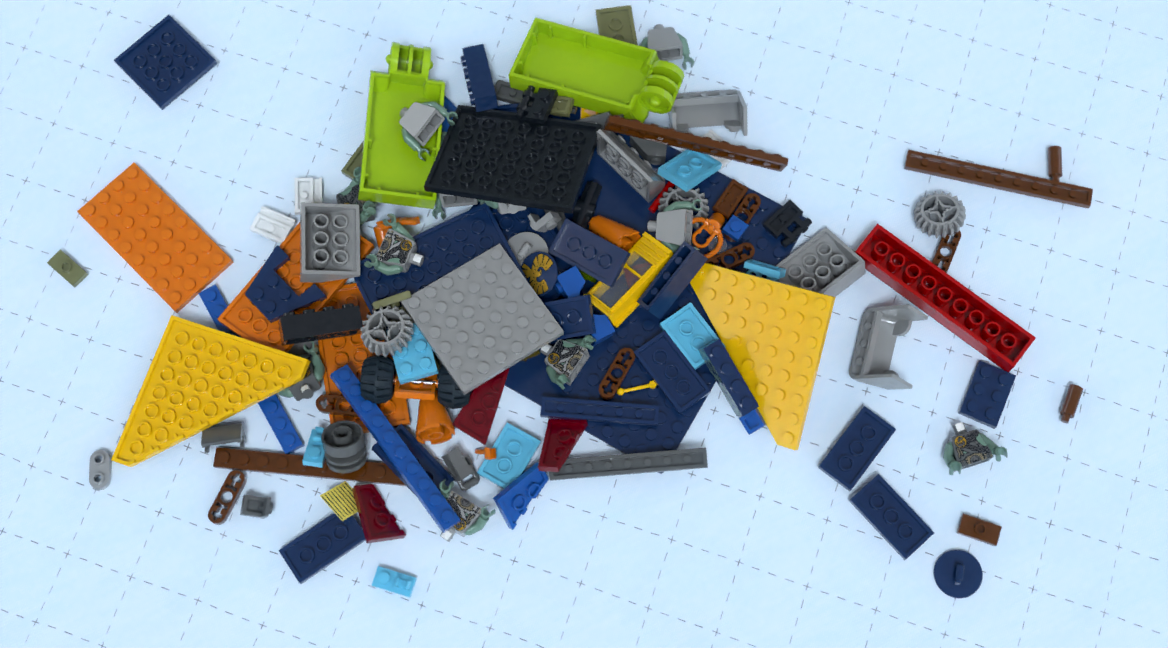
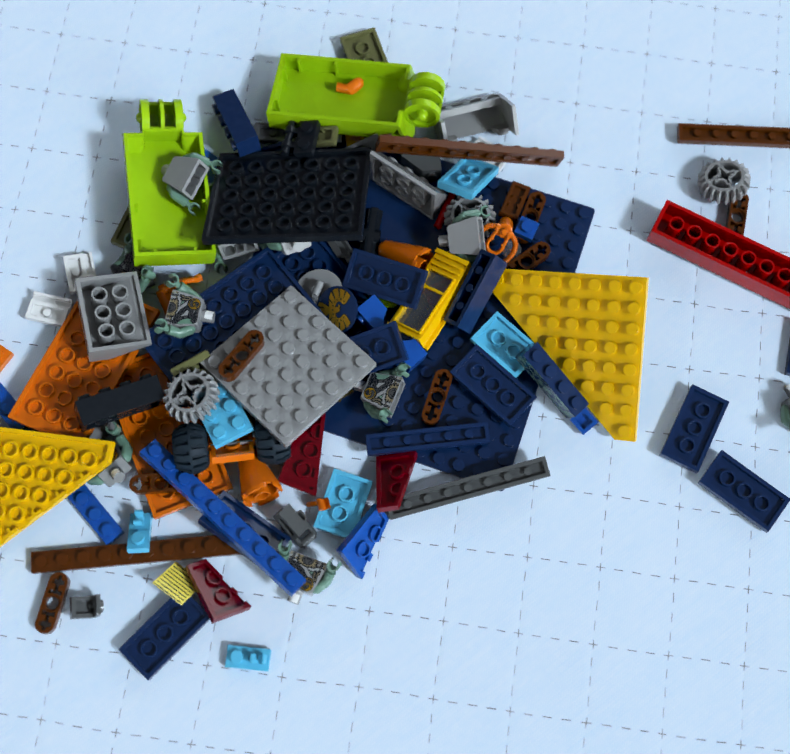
camera: 15 degrees left, 0 degrees up
(223, 435) = (36, 538): dark grey hinge -> none
(272, 294) = (64, 381): dark blue wing -> none
(344, 446) = (168, 526): dark grey wheel -> none
(425, 306) = (242, 364): none -> reddish brown beam
(546, 223) = (333, 257): light grey bracket -> none
(595, 62) = (351, 87): none -> orange arm
(652, 385) = (475, 402): yellow hinge -> none
(668, 44) = (420, 58): light grey torso -> none
(759, 268) = (557, 264): medium azure plate -> none
(783, 219) = (572, 211): black plate -> none
(823, 265) = (619, 250): light grey slope -> none
(877, 342) = (689, 320): light grey windscreen -> none

